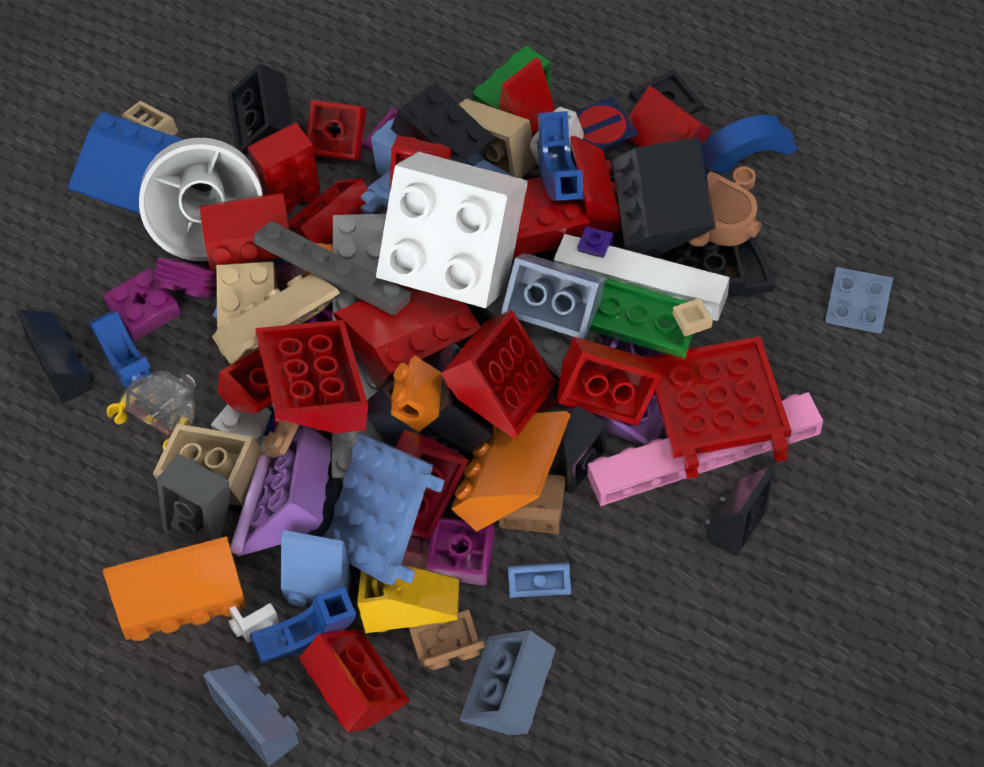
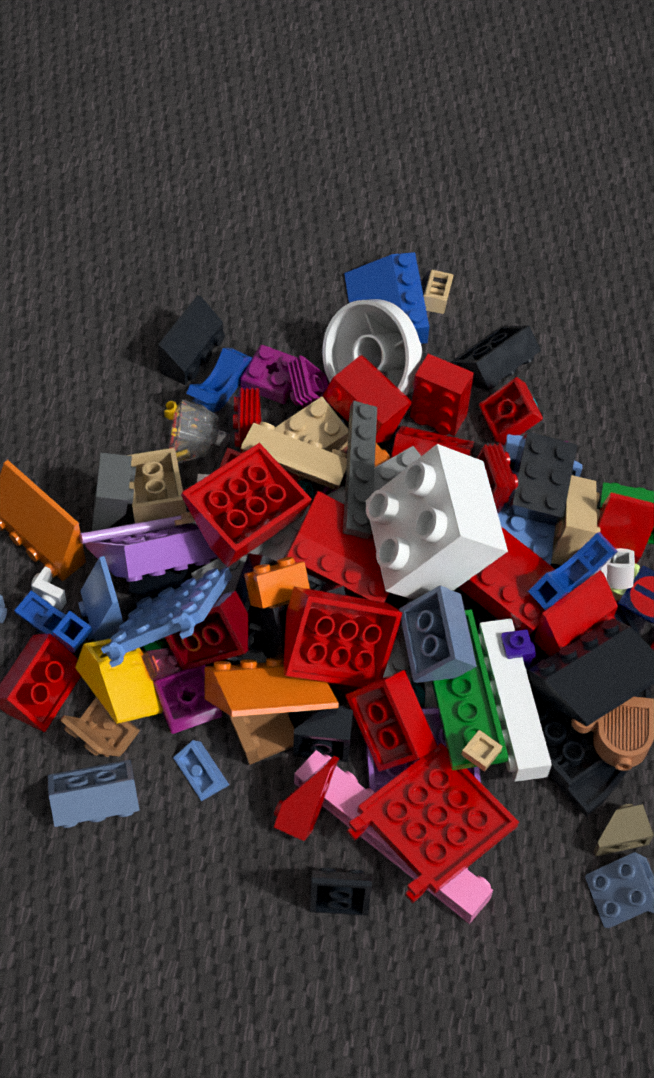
camera: 55 degrees right, 0 degrees up
(191, 345) = (249, 412): none -> red brick
(636, 494) = (302, 807): none -> red slope
(804, 268) = (625, 830): none -> dark tan slope

